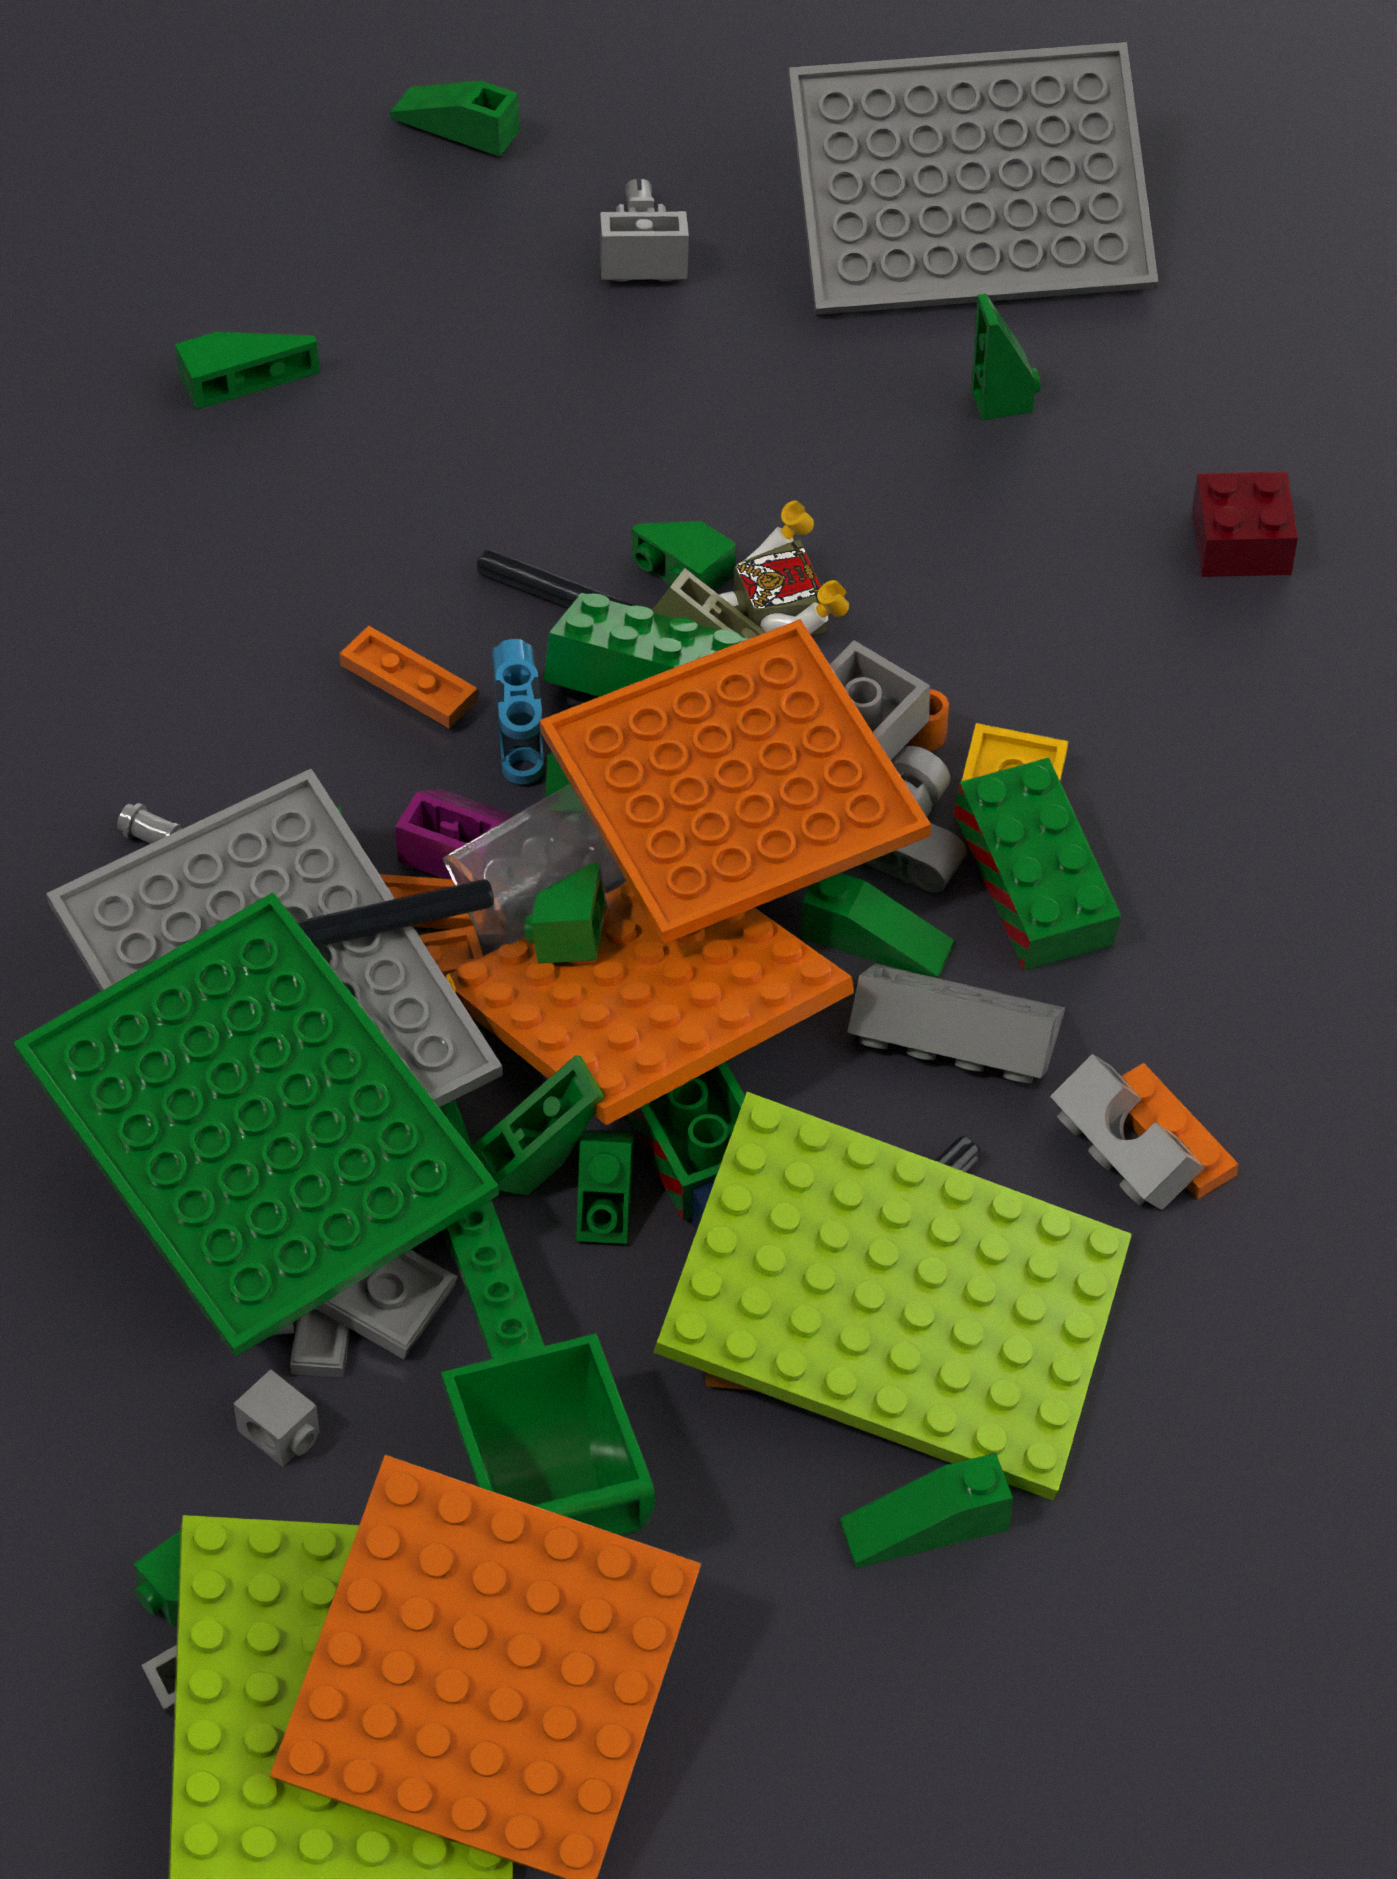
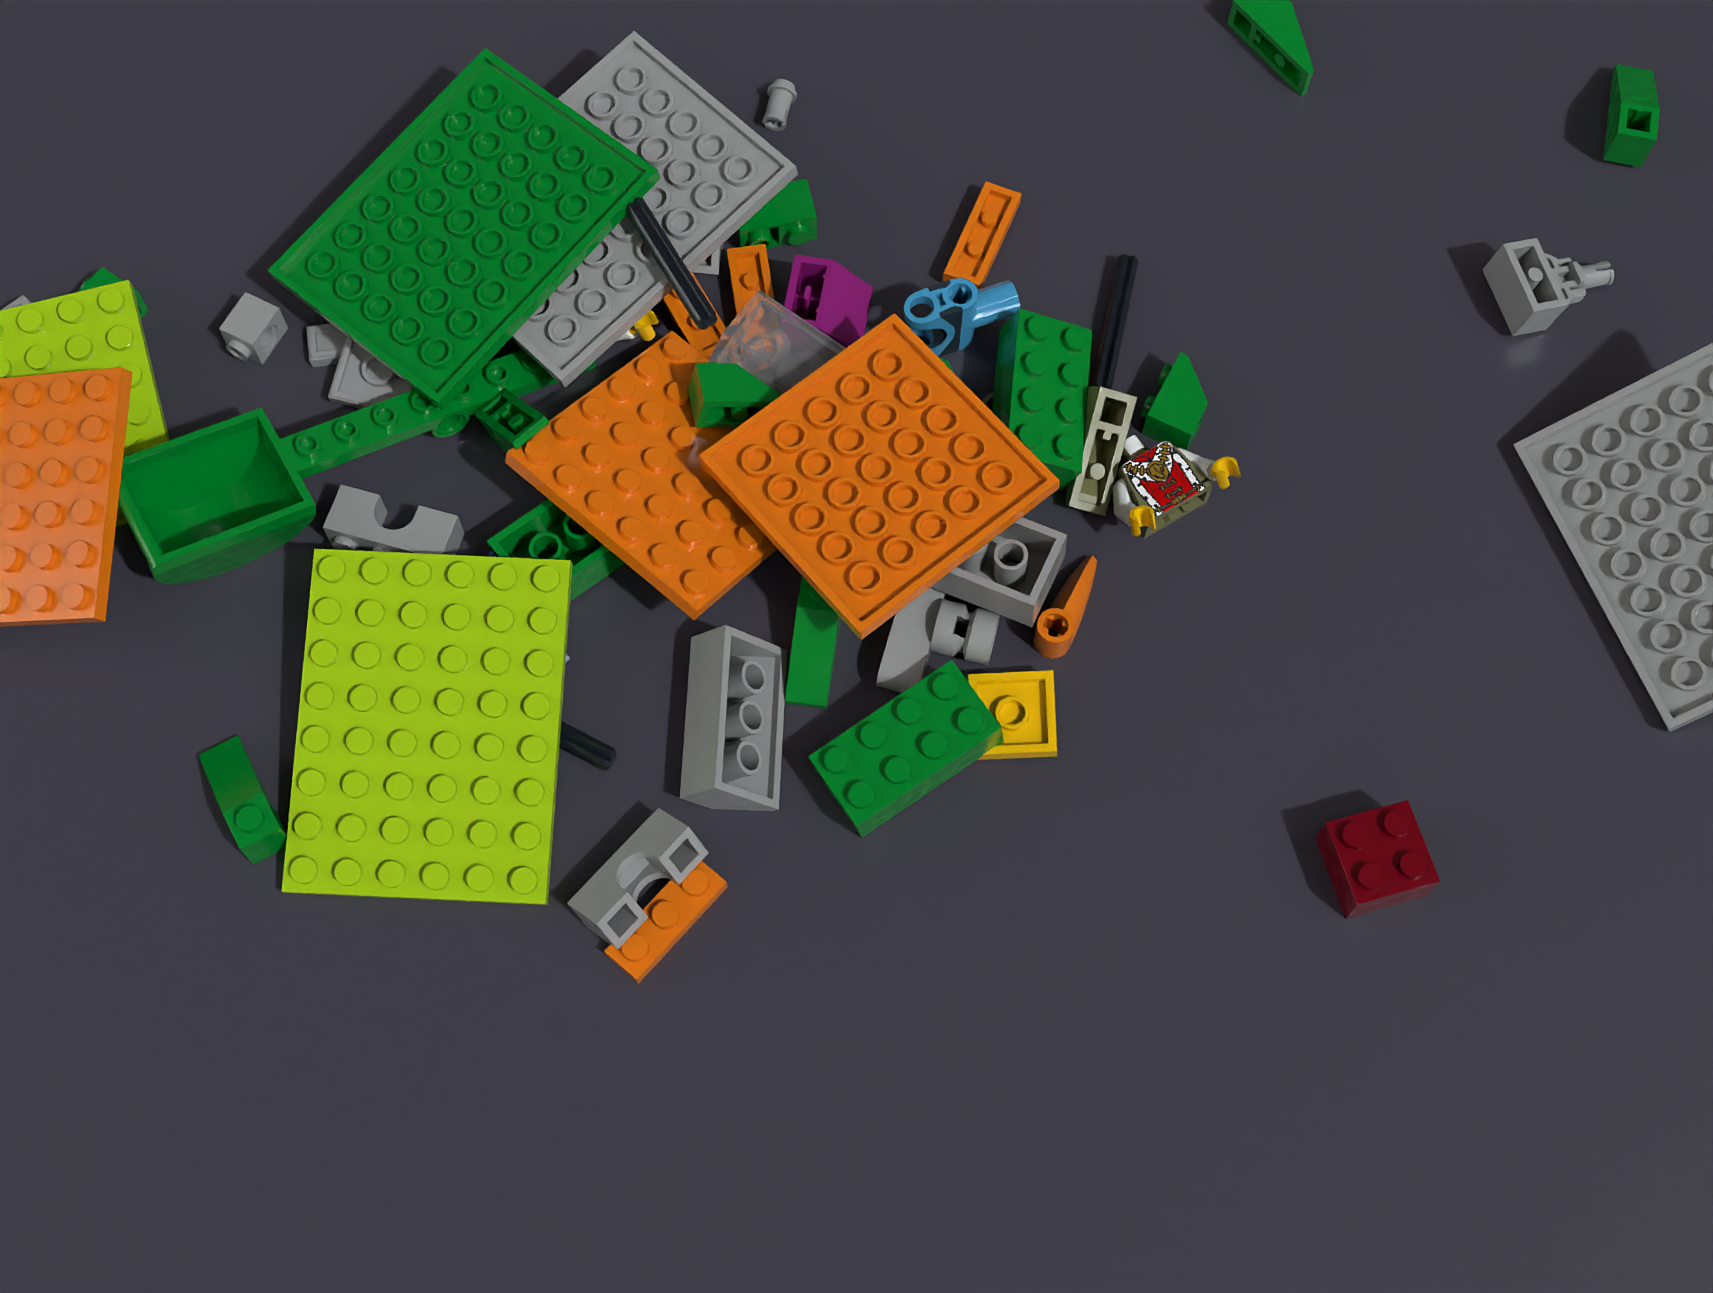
camera: 75 degrees right, 15 degrees up
(605, 1186) = (499, 498): green slope -> none
(642, 1273) = (358, 520): none -> light grey arch
(1001, 373) = (1484, 602): green slope -> none

